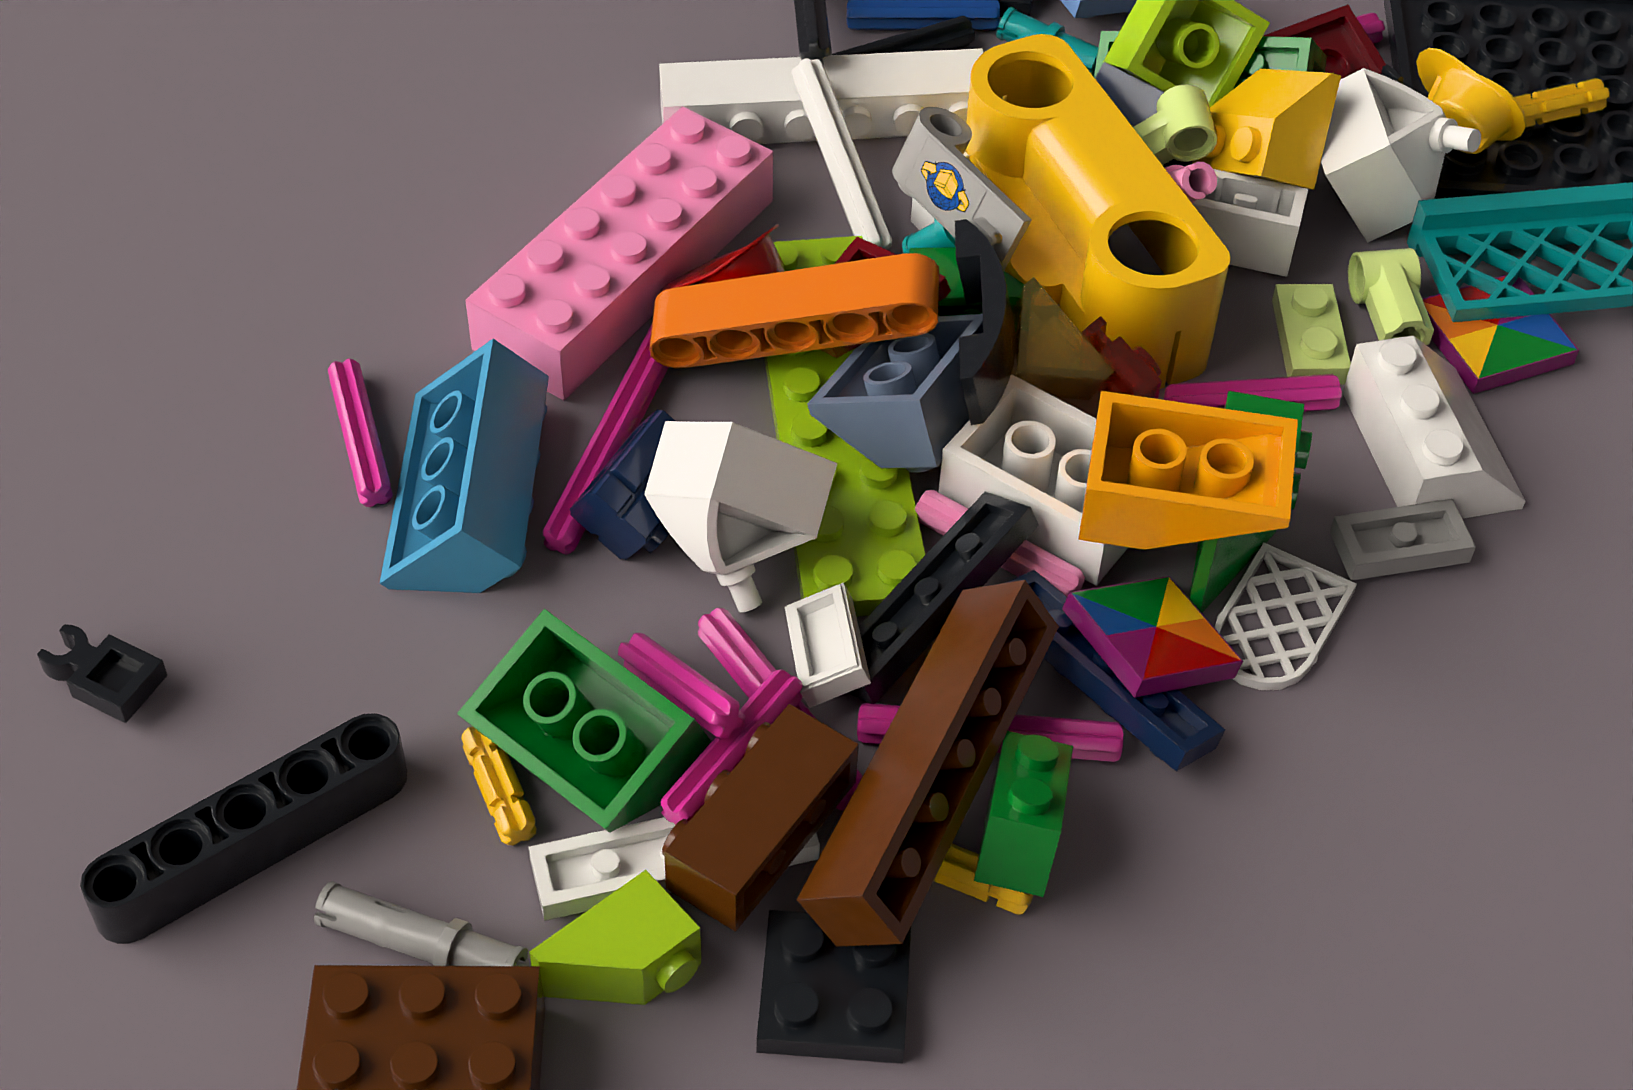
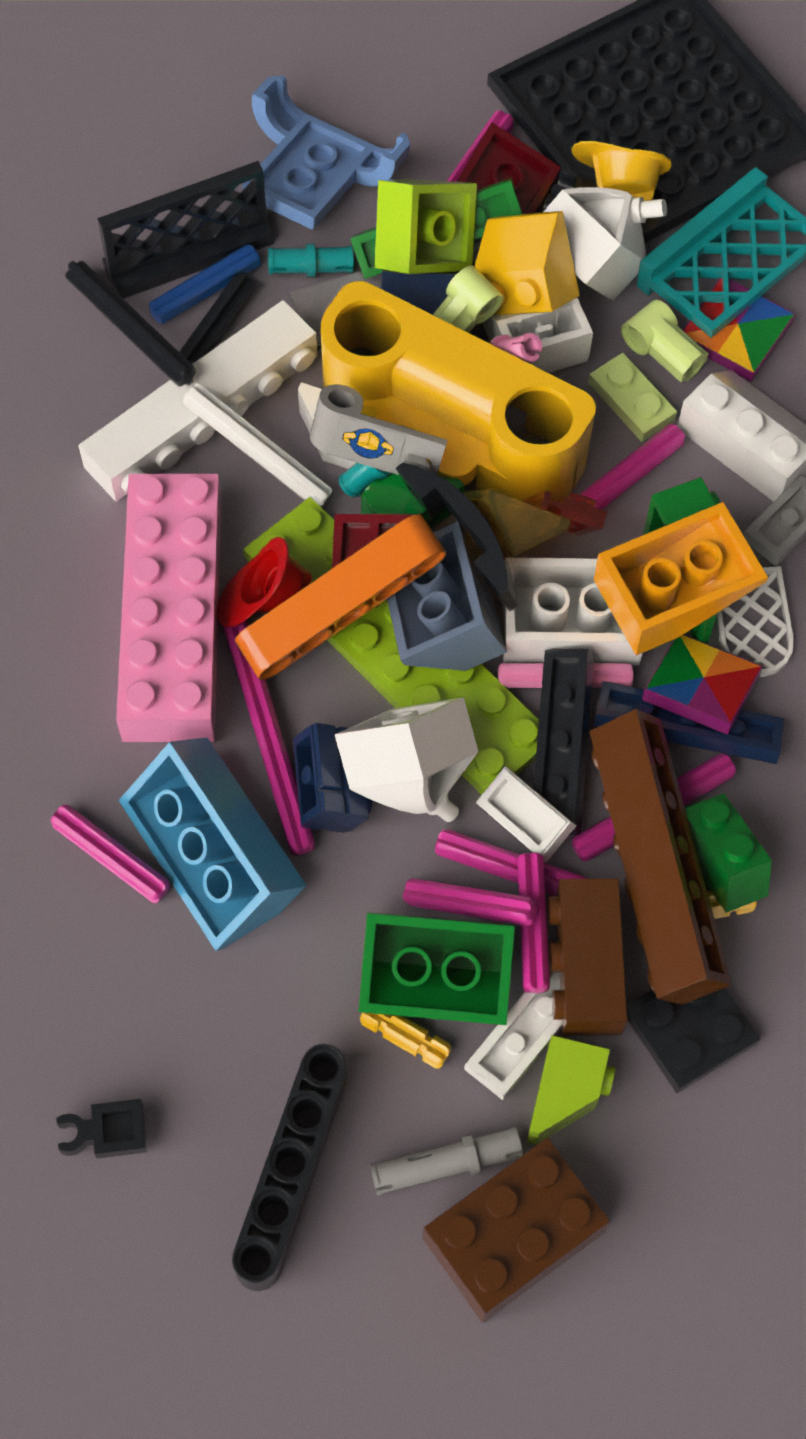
camera: 35 degrees left, 15 degrees up
(1564, 101) = (669, 124): yellow axle -> none

